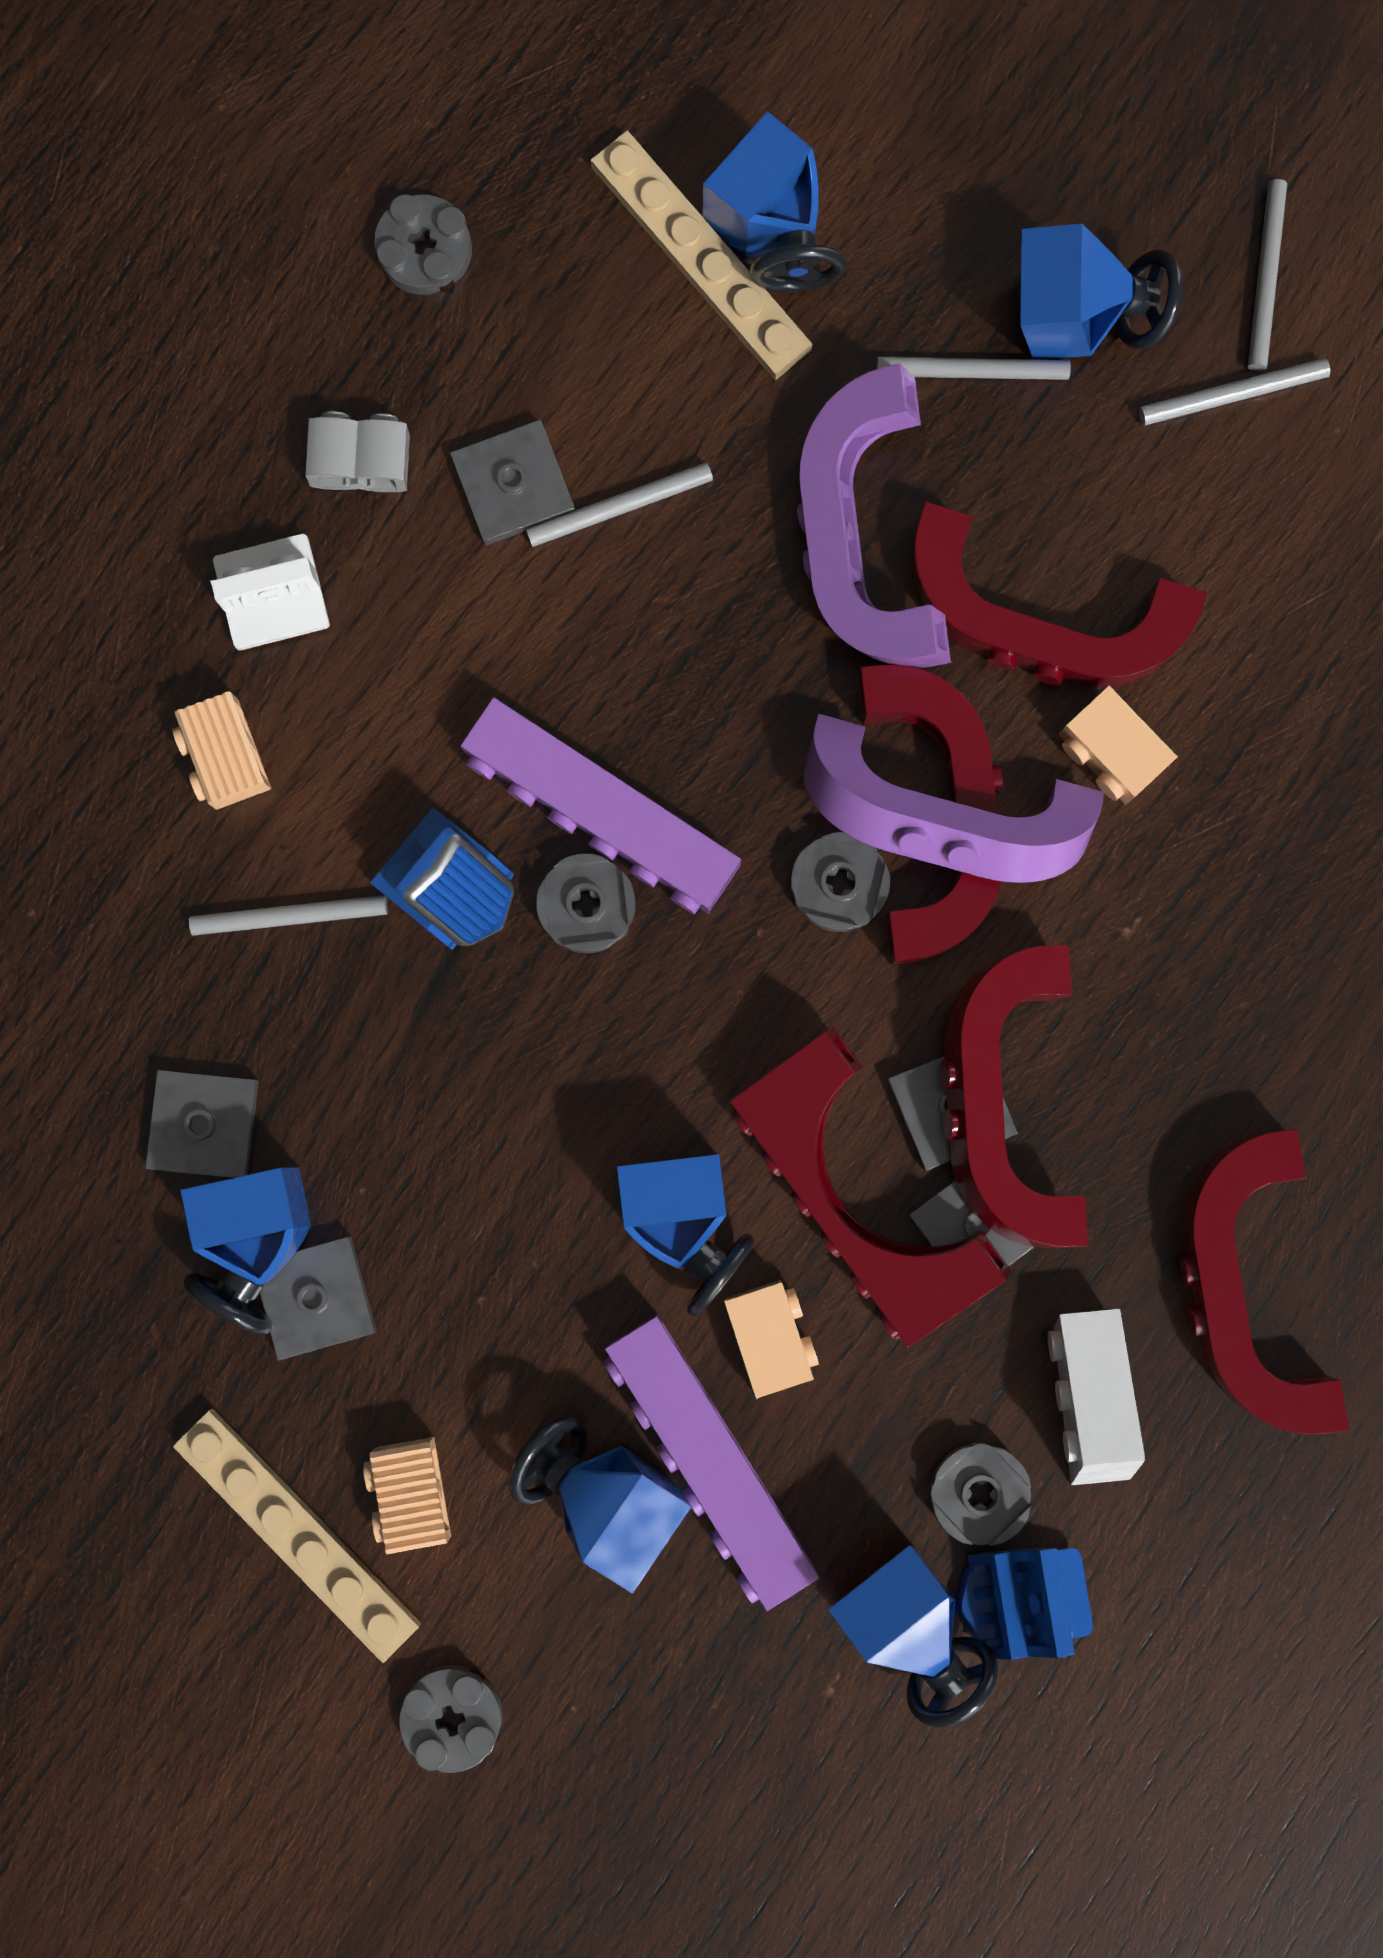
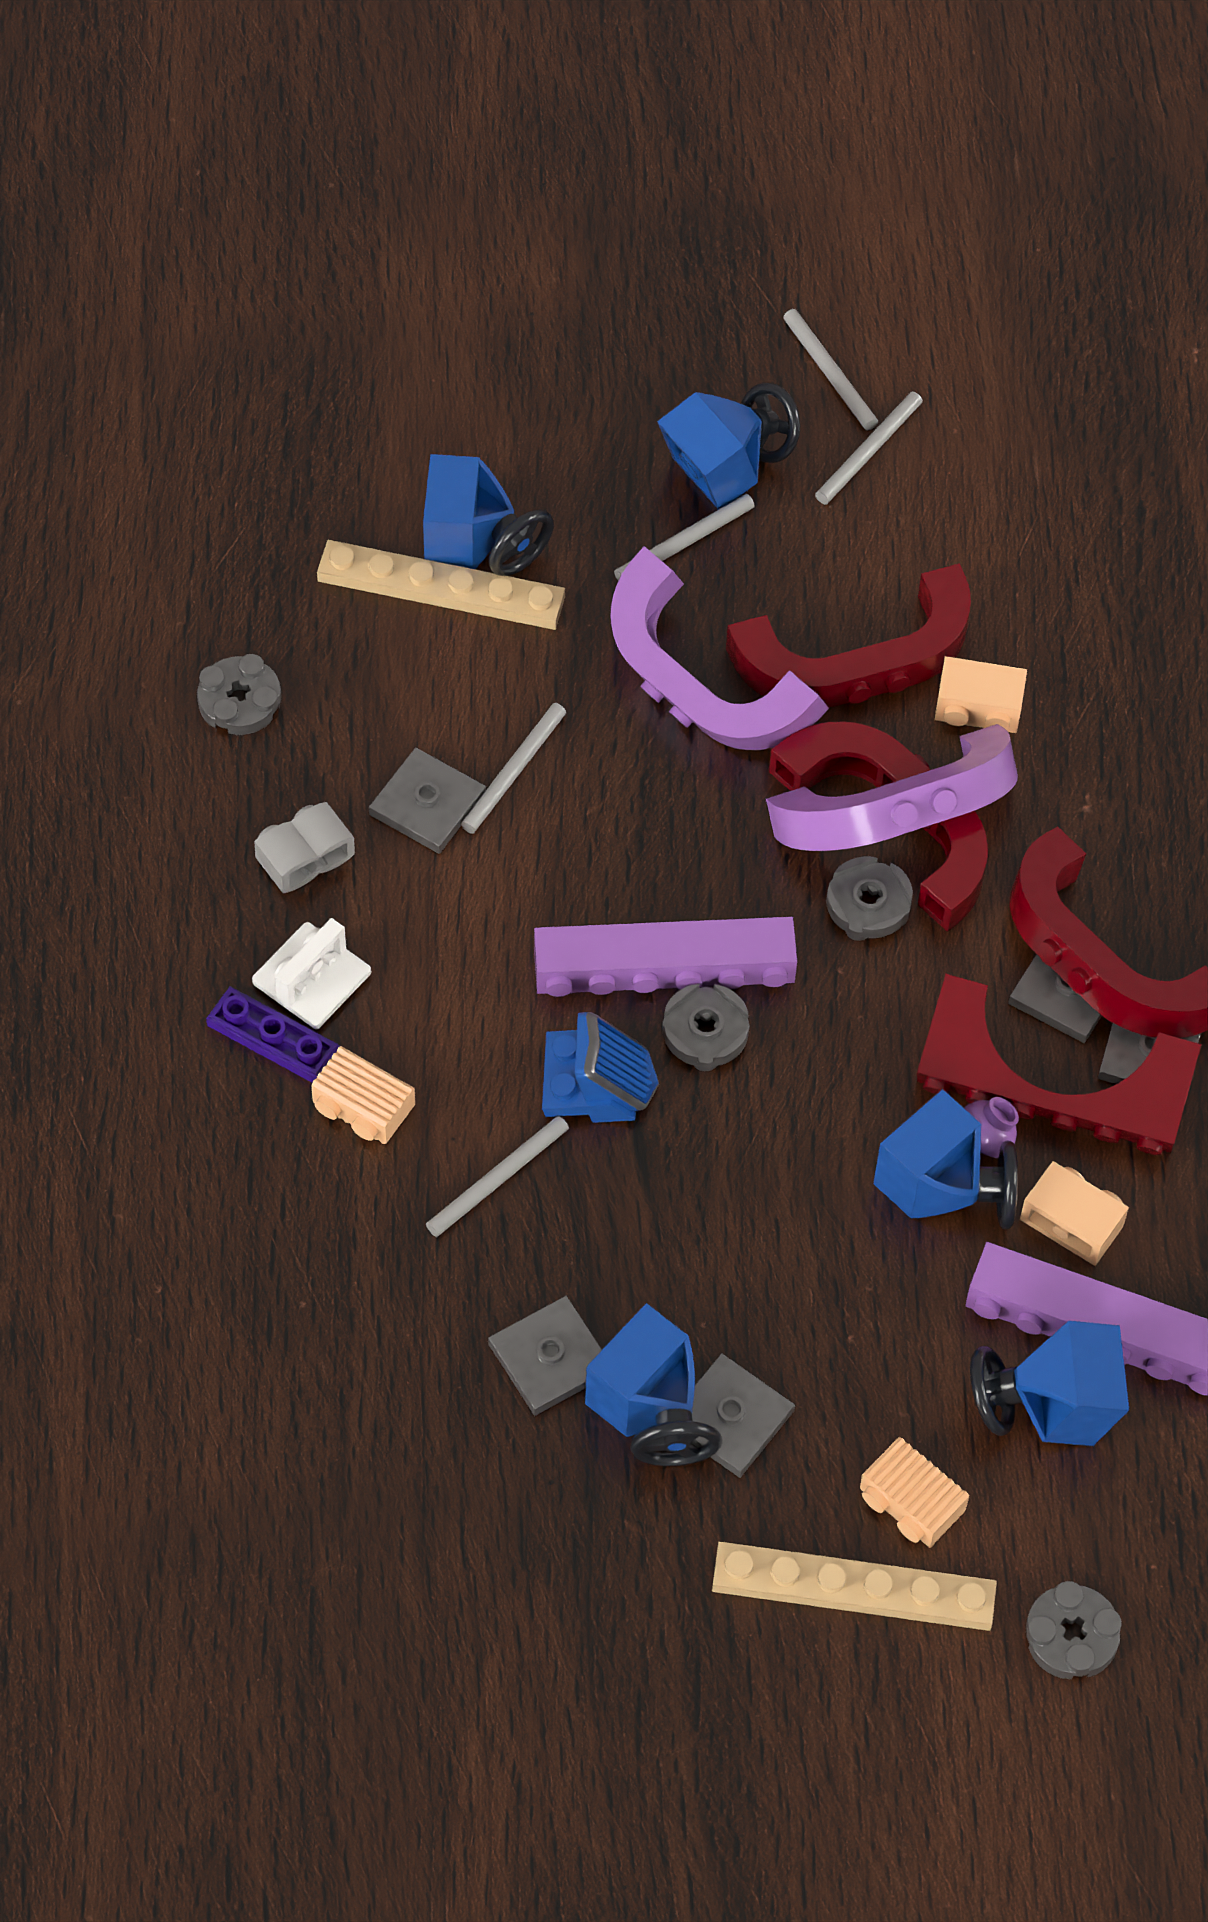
camera: 40 degrees left, 25 degrees down
(203, 652) = (251, 1021): none -> dark purple tile
(757, 1197) = (997, 1122): none -> medium lavender piece

